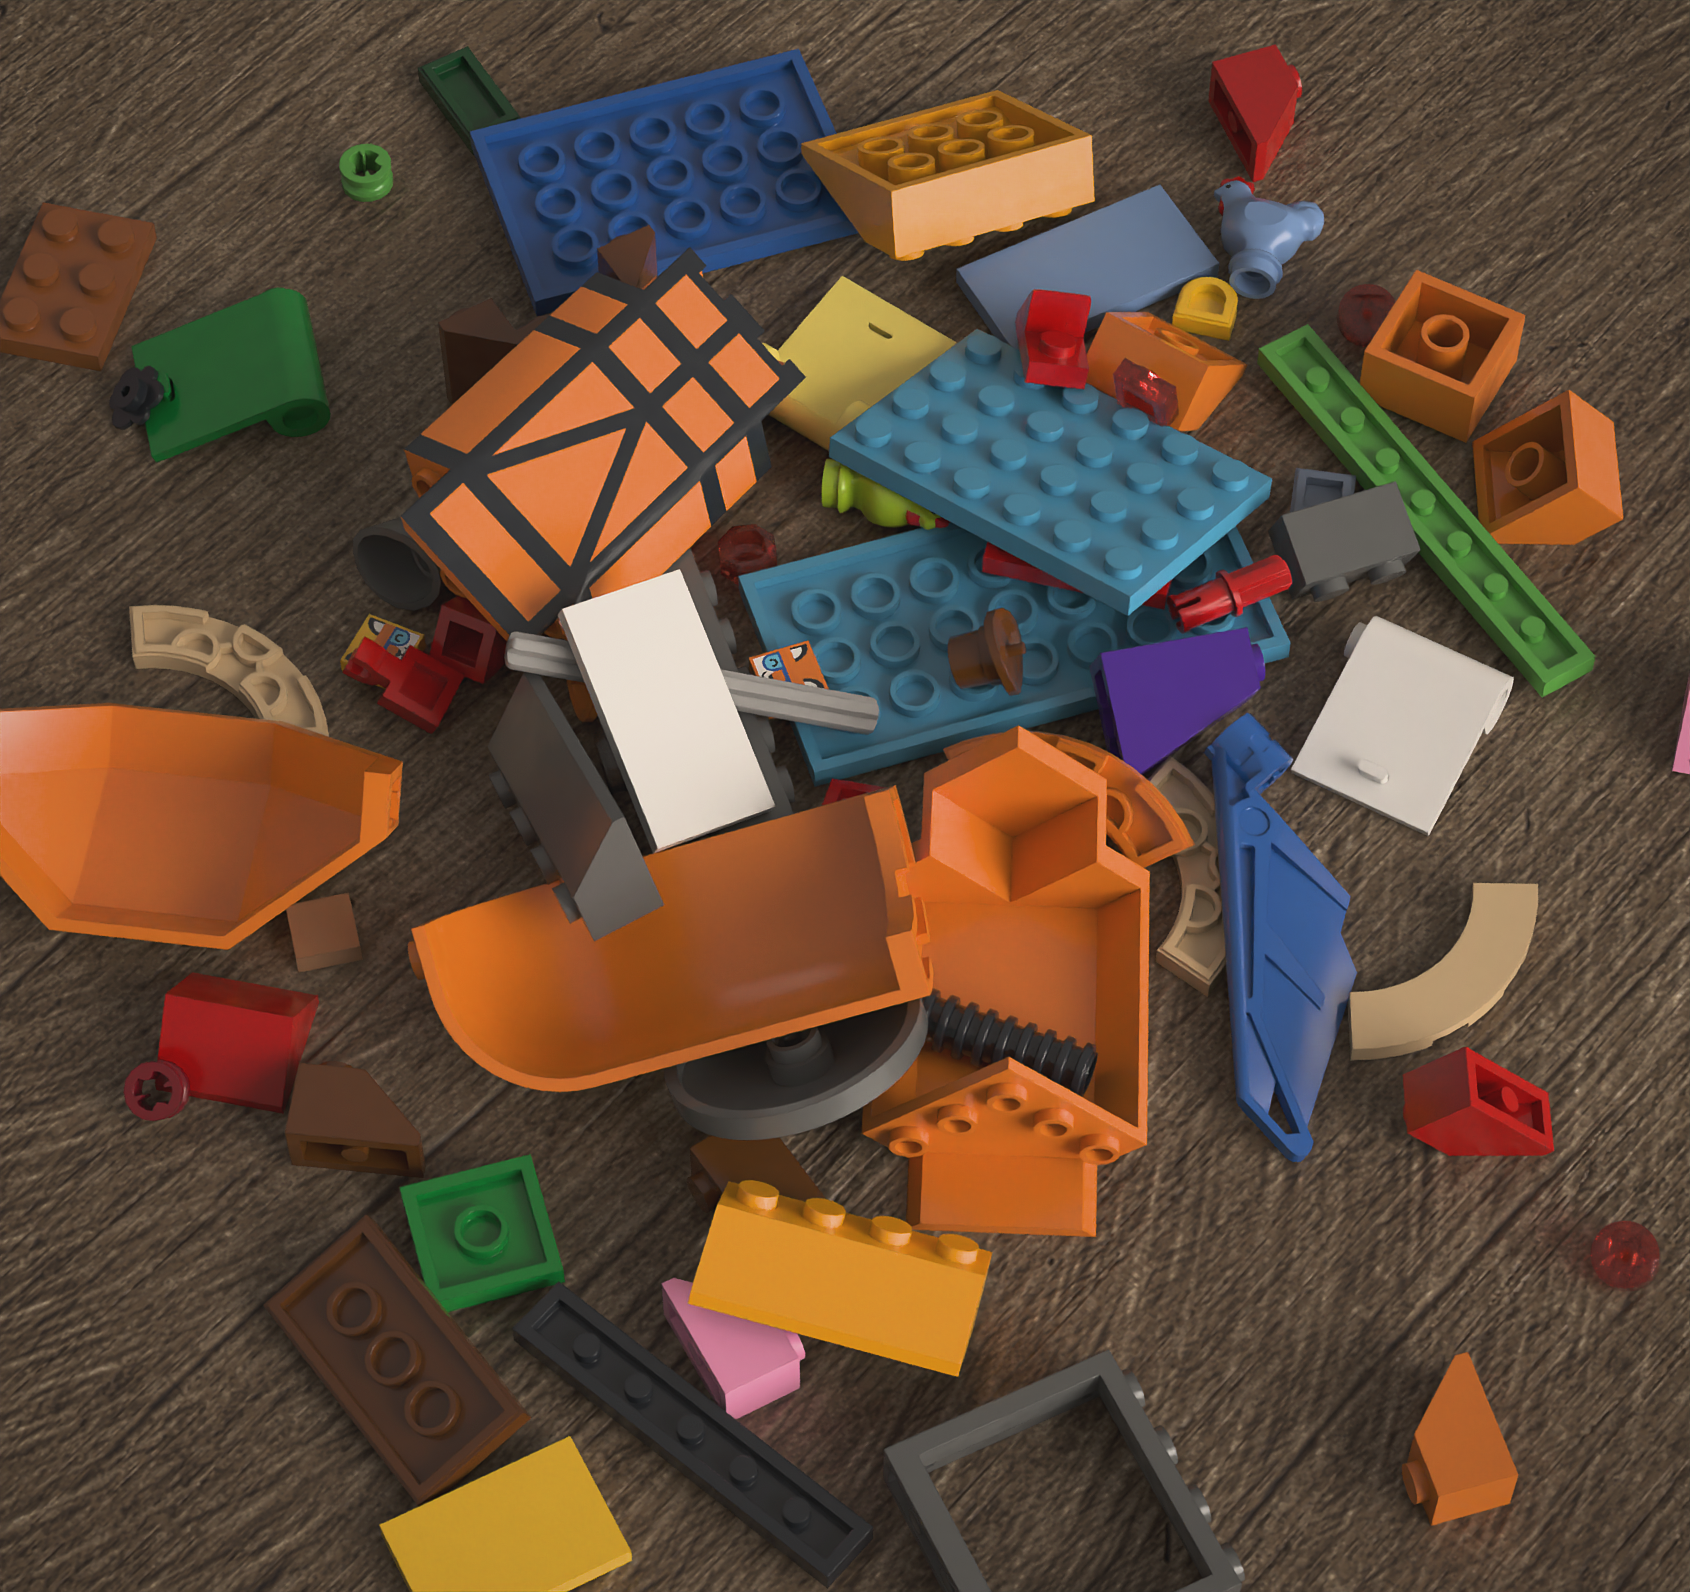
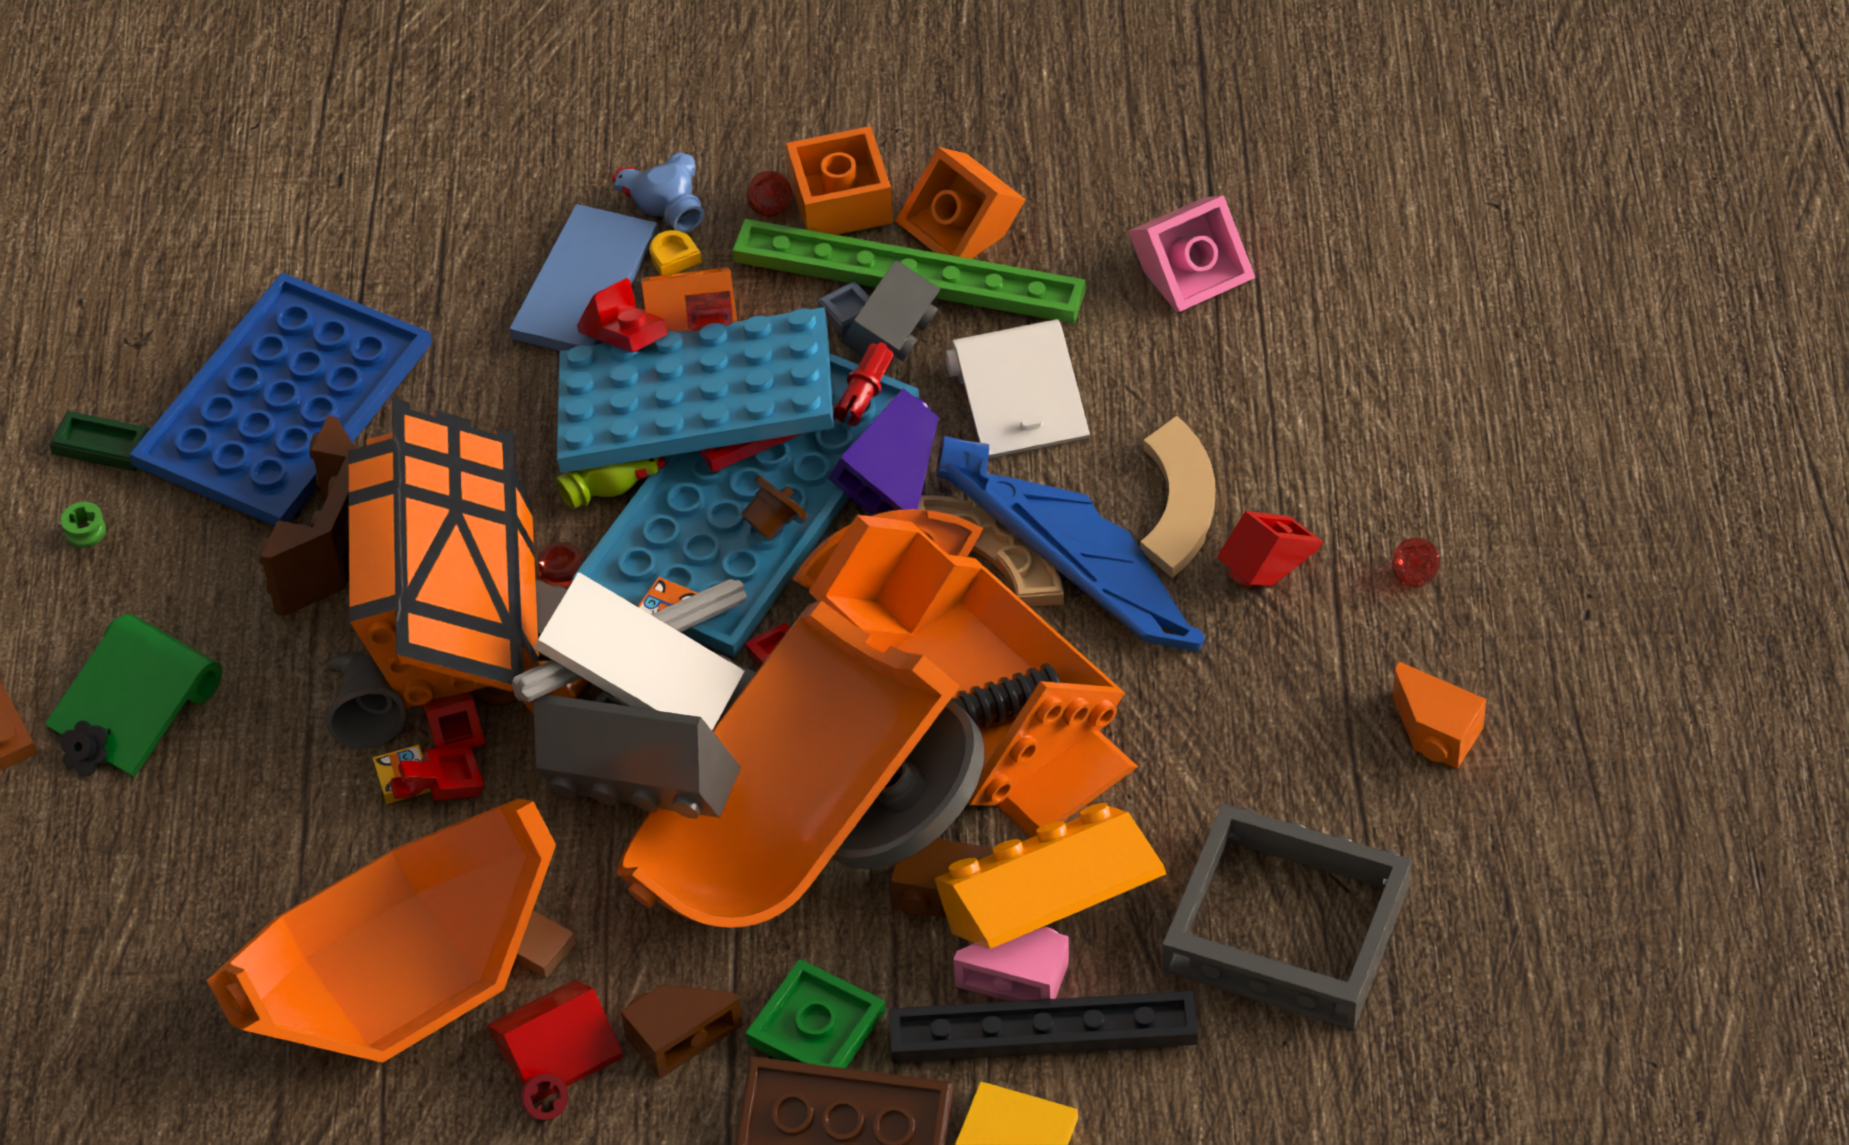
camera: 40 degrees left, 5 degrees down
(231, 657) = (310, 845): tan tile -> none
(852, 357) = (517, 403): light yellow door -> none
(954, 172) = (454, 274): light orange slope -> none
(1255, 104) = (584, 125): red slope -> none

